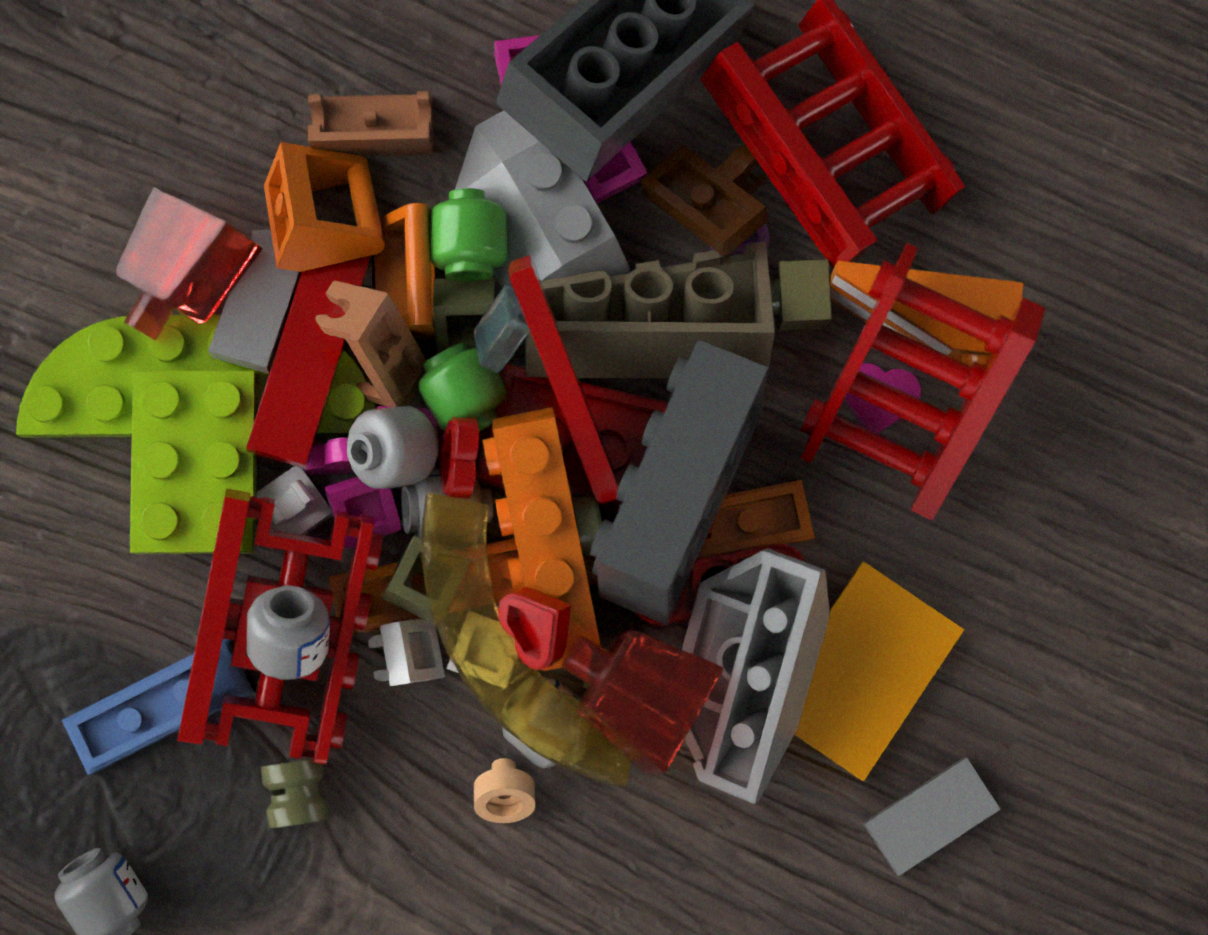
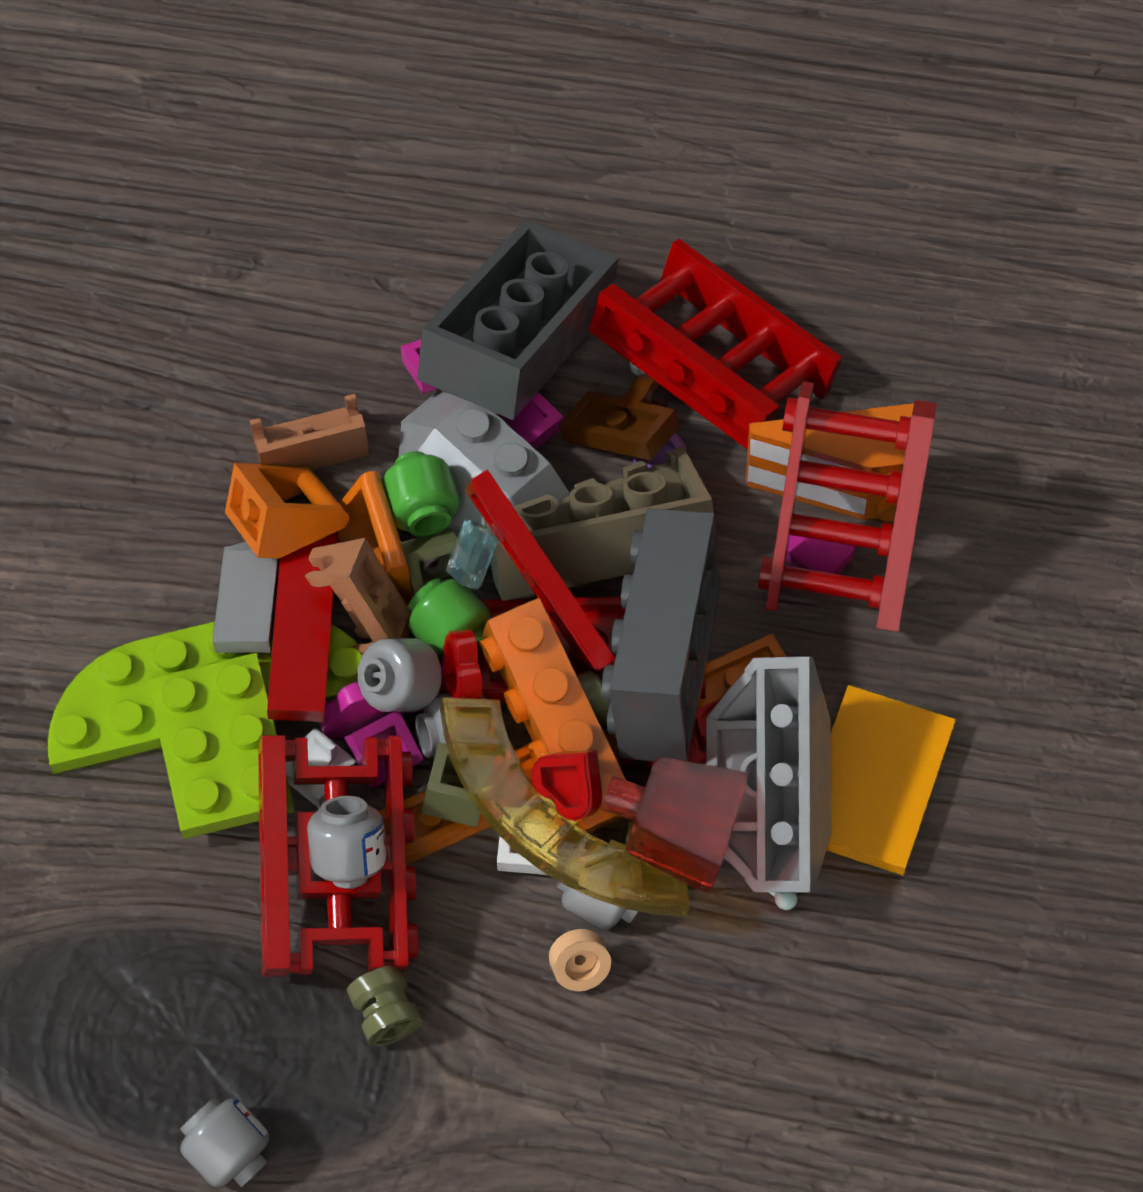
camera: 10 degrees left, 20 degrees down
(147, 711) = (221, 979): medium blue tile -> none
(181, 263) = (171, 577): clear red torso -> none
(409, 652) = (460, 859): white tile -> none
(801, 295) = (729, 481): olive plate -> none
(931, 816) = (976, 886): light grey tile -> none

